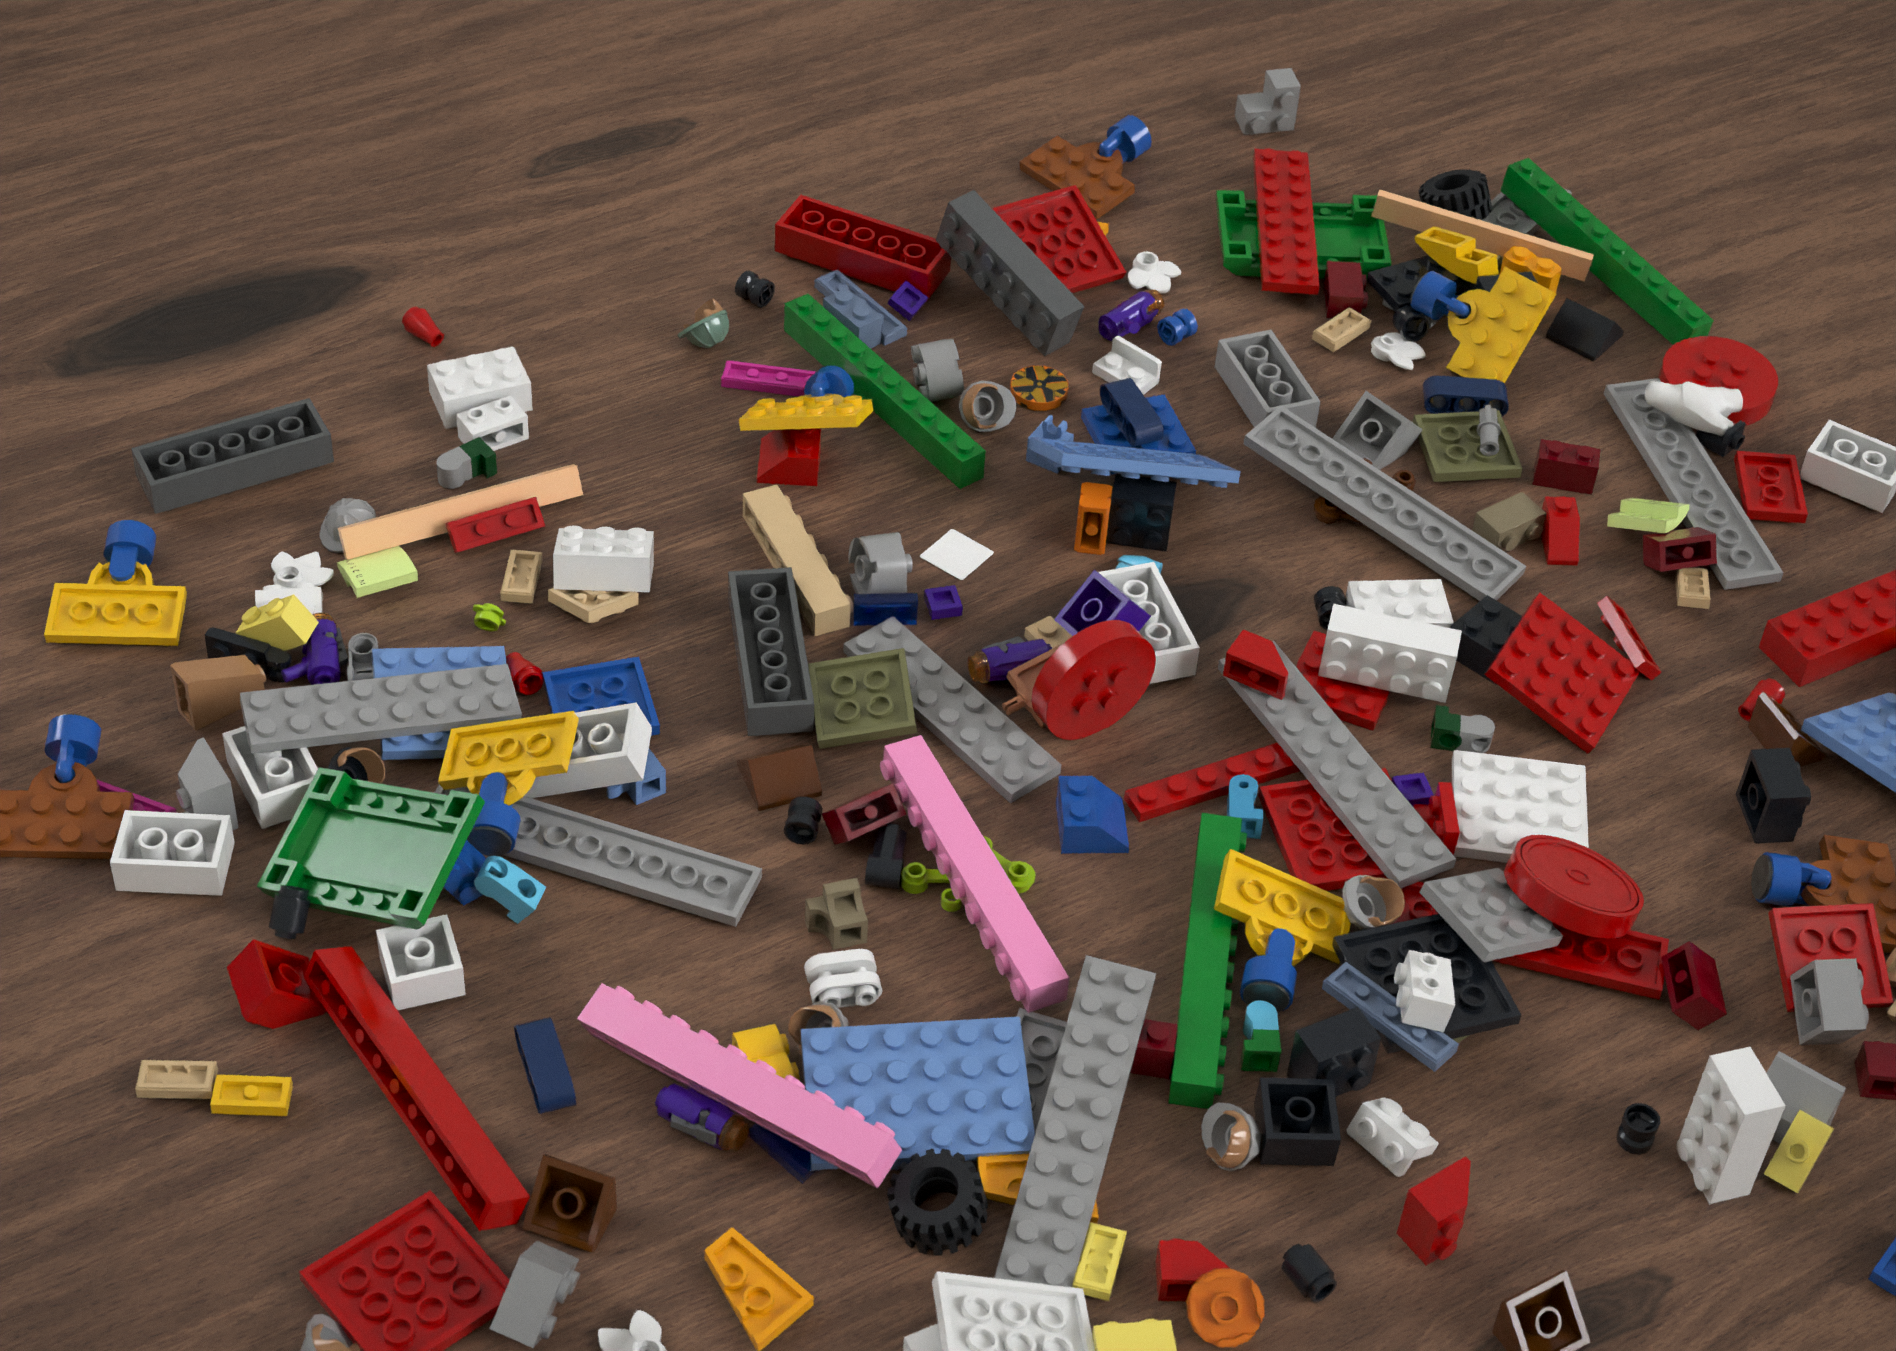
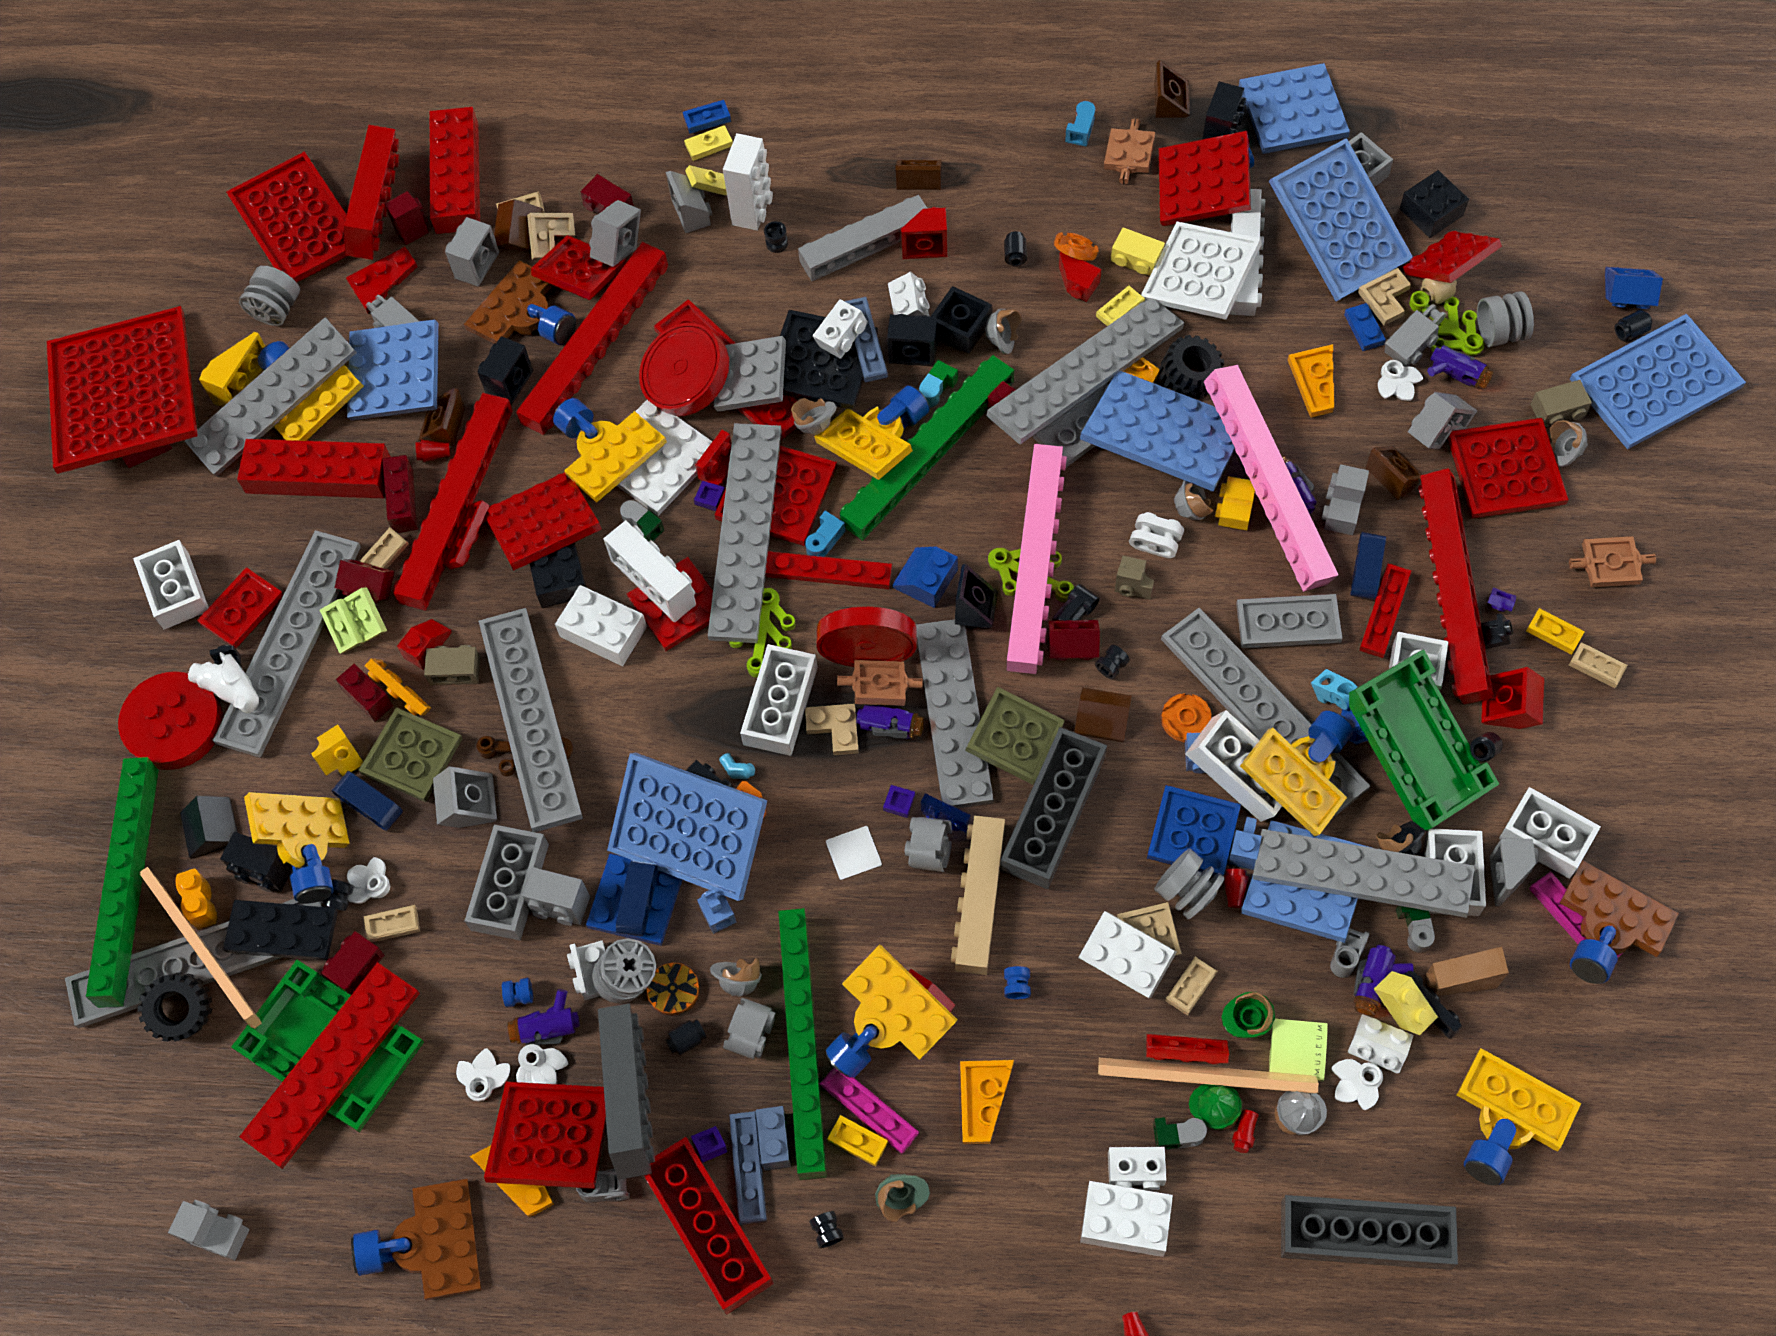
camera: 140 degrees left, 20 degrees up
(203, 1221) = (1612, 561): none -> nougat plate
(331, 1048) = (1497, 632): none -> black bracket
(341, 1100) = (1501, 600): none -> dark purple plate
(397, 487) = (1243, 1137): none -> red animal
(433, 488) = (1216, 1106): none -> green piece
(444, 565) = (1248, 1015): none -> green piece
(488, 617) = (1236, 953): lime plate -> none
(494, 1024) = (1385, 610): none -> red plate
(532, 696) = (1245, 846): none -> medium blue brick
(574, 630) = (1189, 883): none -> light grey wheel
(613, 955) = (1289, 621): none -> light grey plate
(620, 1124) = (1345, 498): none -> light grey brick
(679, 421) = (981, 1097): none -> light orange wing
(679, 812) = (1185, 715): none -> orange tile
(705, 508) = (1017, 982): none -> blue wheel
(774, 351) = (857, 1140): none -> yellow plate
(994, 356) = (685, 1037): none -> black brick
(1011, 803) = (974, 600): none -> black slope
(1090, 356) = (613, 981): none -> light grey wheel
(1099, 602) = (820, 687): dark purple brick -> none
(1106, 295) = (543, 1068): none -> white plate
(1209, 386) = (556, 896): none -> light grey brick
(1242, 717) = (767, 626): none -> lime plant
(1256, 664) = (745, 604): red slope -> none
(1324, 603) = (638, 656): black wheel -> none
(1457, 253) = (249, 921): yellow slope -> none
(1488, 431) = (390, 746): light grey axle -> none
(1522, 1187) = (858, 239): none -> light grey brick
(1535, 413) = (336, 752): none -> yellow brick
(1540, 478) = (415, 703): none -> light orange wing
(1563, 774) = (605, 449): none -> yellow plate
(1684, 668) = (455, 495): none -> red brick
(1693, 985) = (670, 289): dark red brick -> none
(1726, 903) = (593, 337): none -> red brick
(1740, 640) = (400, 494): none -> dark red brick
(1862, 1230) = (708, 143): none -> light yellow plate

